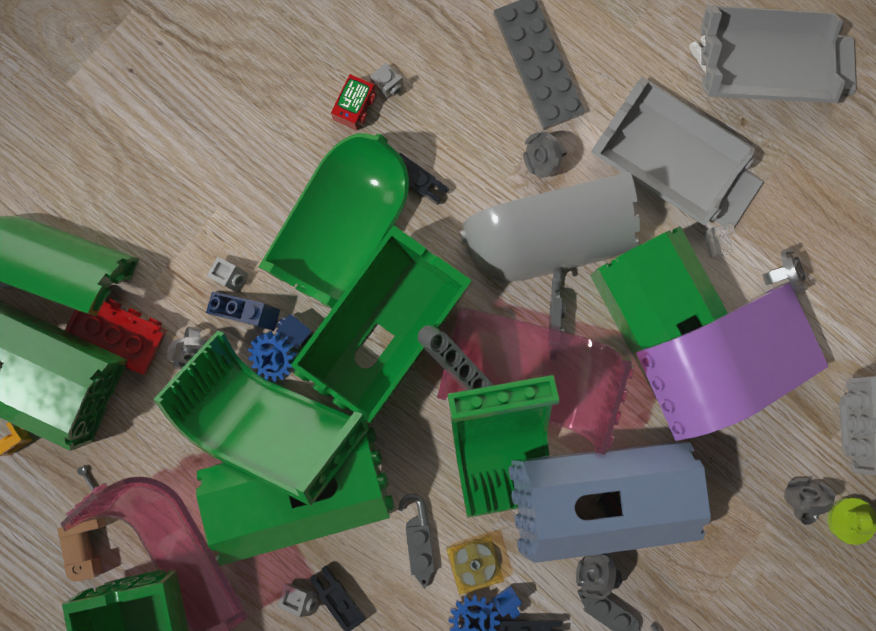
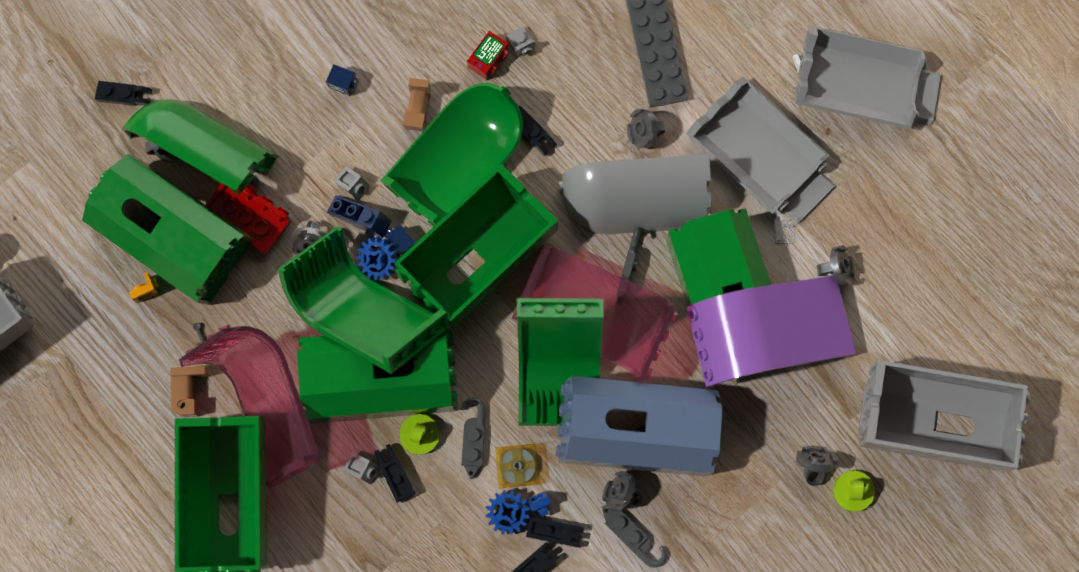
camera: 15 degrees right, 5 degrees down
(194, 159) = (342, 80): none -> dark blue brick
(285, 161) = (418, 104): none -> medium nougat piece
(357, 549) = (419, 434): none -> lime tile
(452, 359) = (520, 270): dark grey beam -> none

